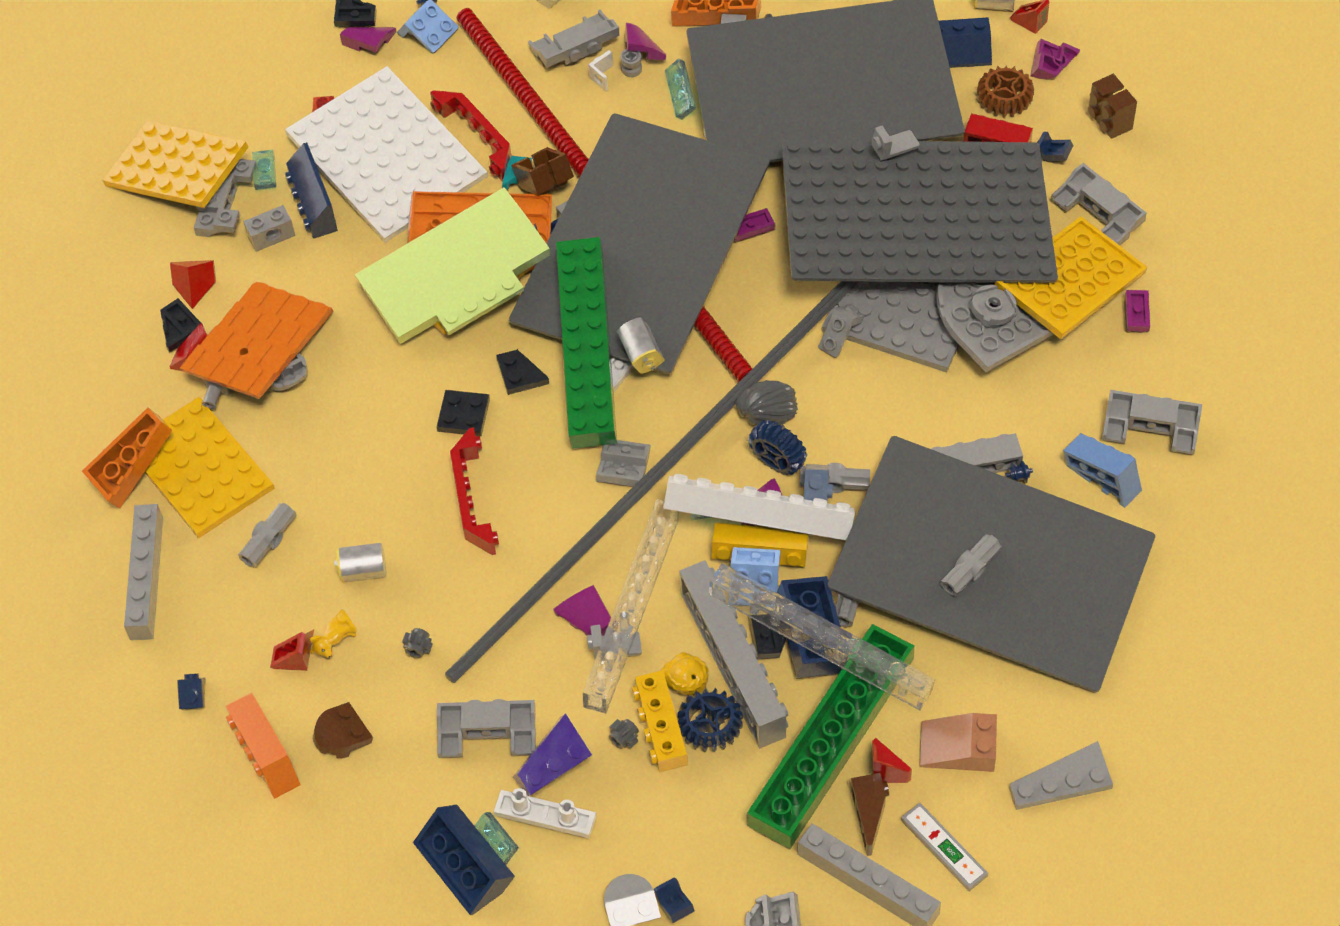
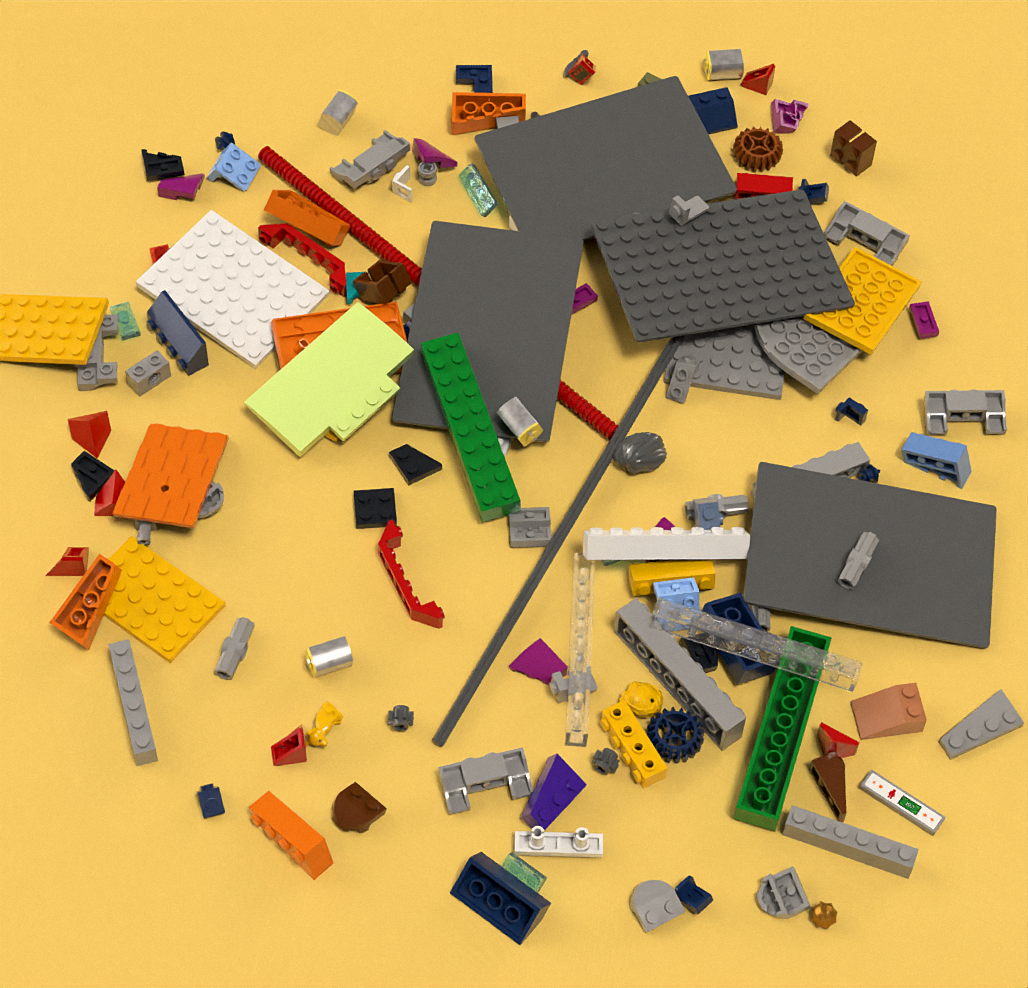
camera: 20 degrees left, 0 degrees up
(127, 411) = (73, 563): none -> red slope
(485, 88) = (307, 216): none -> orange wedge
(777, 447) = (662, 489): dark blue gear -> none
(993, 315) = (808, 344): light grey plate -> none
(1022, 396) = (853, 410): none -> dark blue bracket

